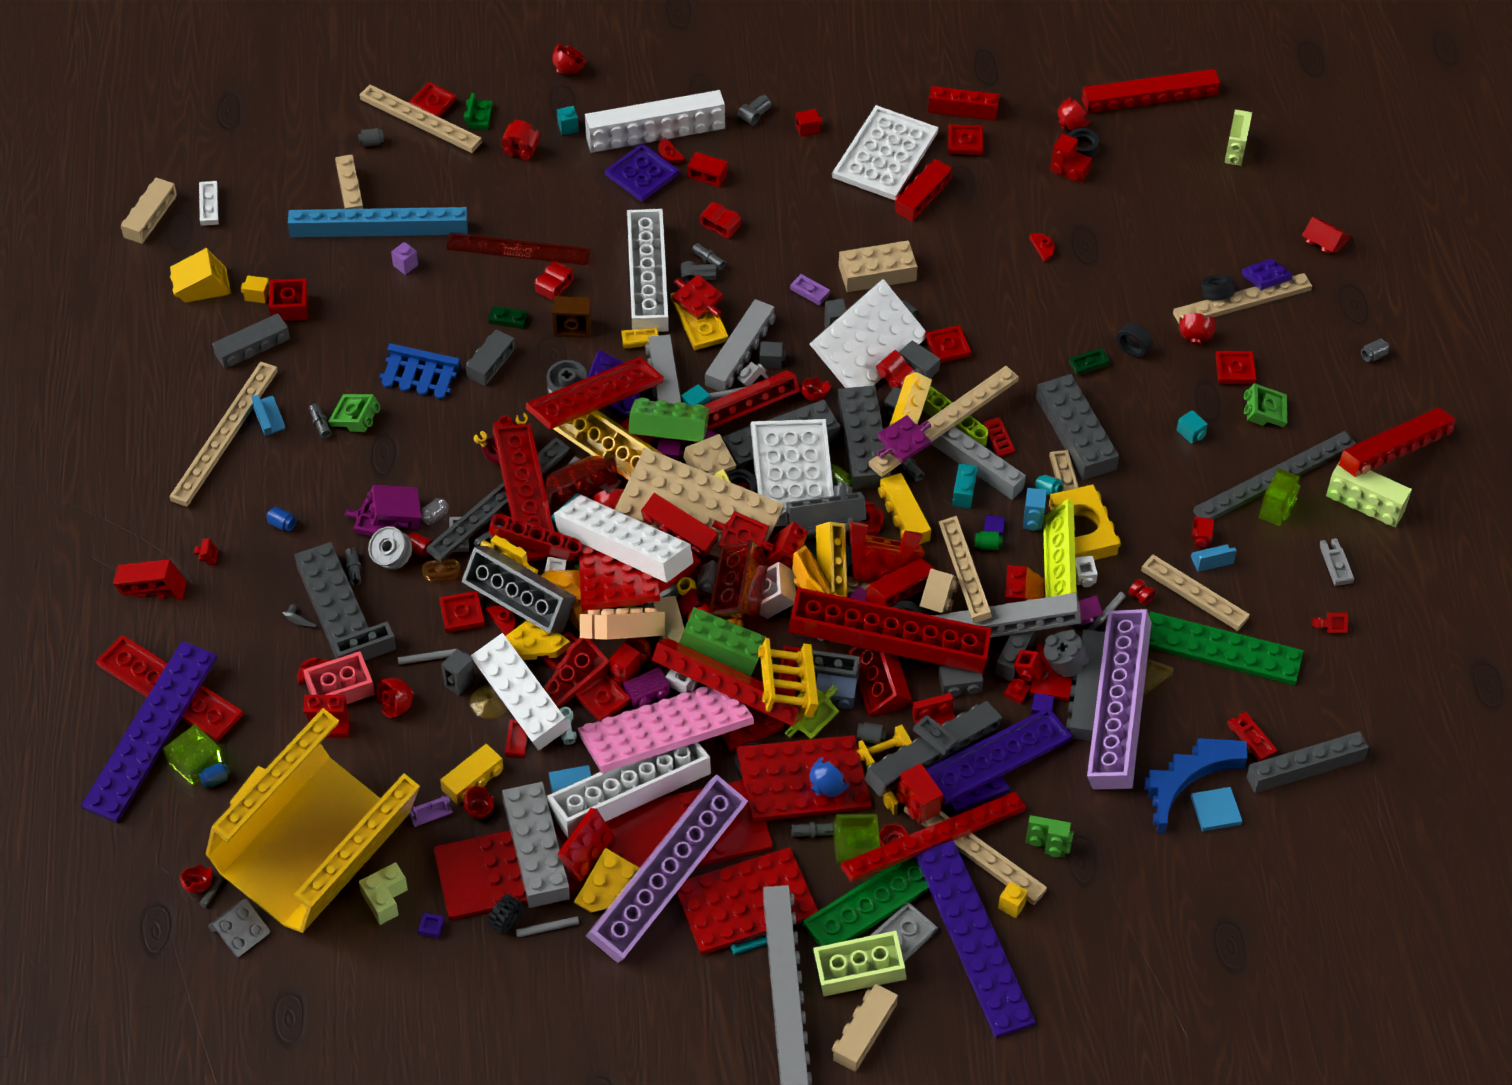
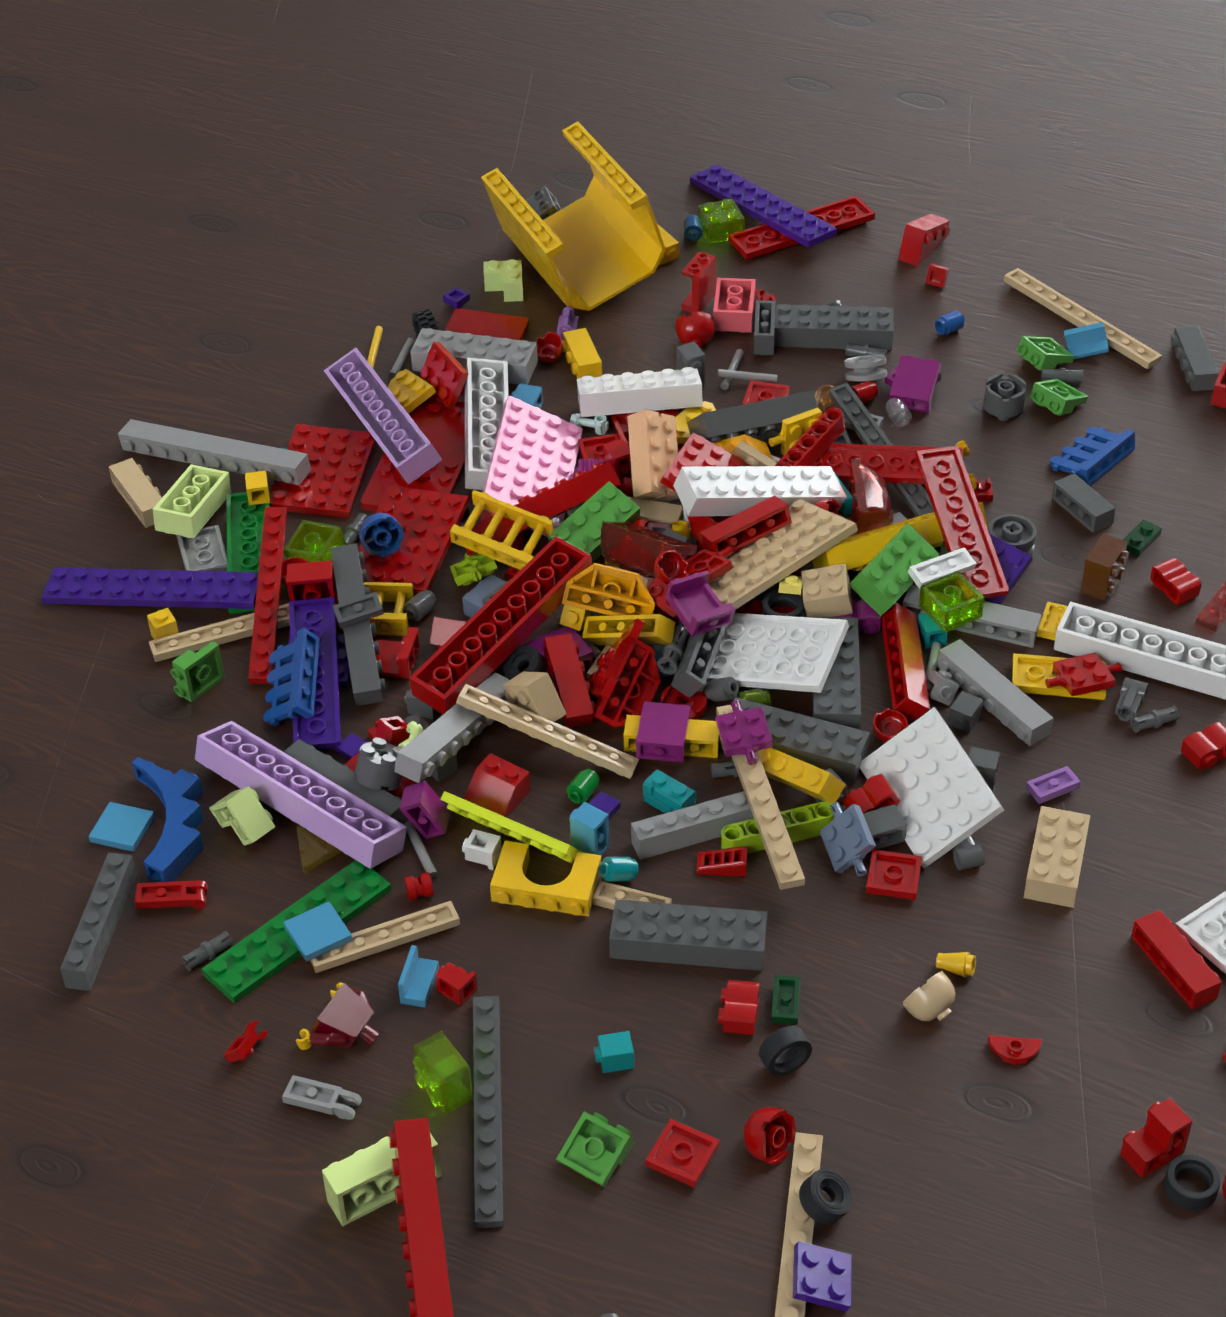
camera: 120 degrees right, 10 degrees down
(295, 439) = (1043, 352): none -> bright green plate
(378, 443) = (1004, 396): none -> dark grey brick
(436, 636) = (747, 375): none -> light grey bar
(550, 956) = (374, 345): none -> yellow bar
(575, 563) = (752, 456): none -> tan plate
(658, 385) = (941, 566): none -> white plate
(681, 378) = (951, 601): none -> clear neon green brick
(771, 541) = (670, 566): none -> red hair
(800, 506) = (698, 604): none -> magenta panel
(814, 919) = (257, 487): none -> yellow brick
(910, 507) = (662, 731): none -> magenta panel
(944, 368) = (847, 839): none -> sand blue plate
(999, 288) = (957, 963): none -> yellow cone
(1010, 761) = (303, 678): none -> blue fence
(1029, 643) = (414, 730): none -> yellowish green arm
(1040, 289) = (932, 999): none -> tan cylinder
(1112, 379) = (740, 1007): none -> red brick
(1161, 727) = (244, 814): none -> yellowish green brick
(1224, 623) = (317, 931): none -> dark azure tile
(1278, 573) = (341, 1021): none -> torso
(1279, 688) = (207, 950): none -> dark grey pin

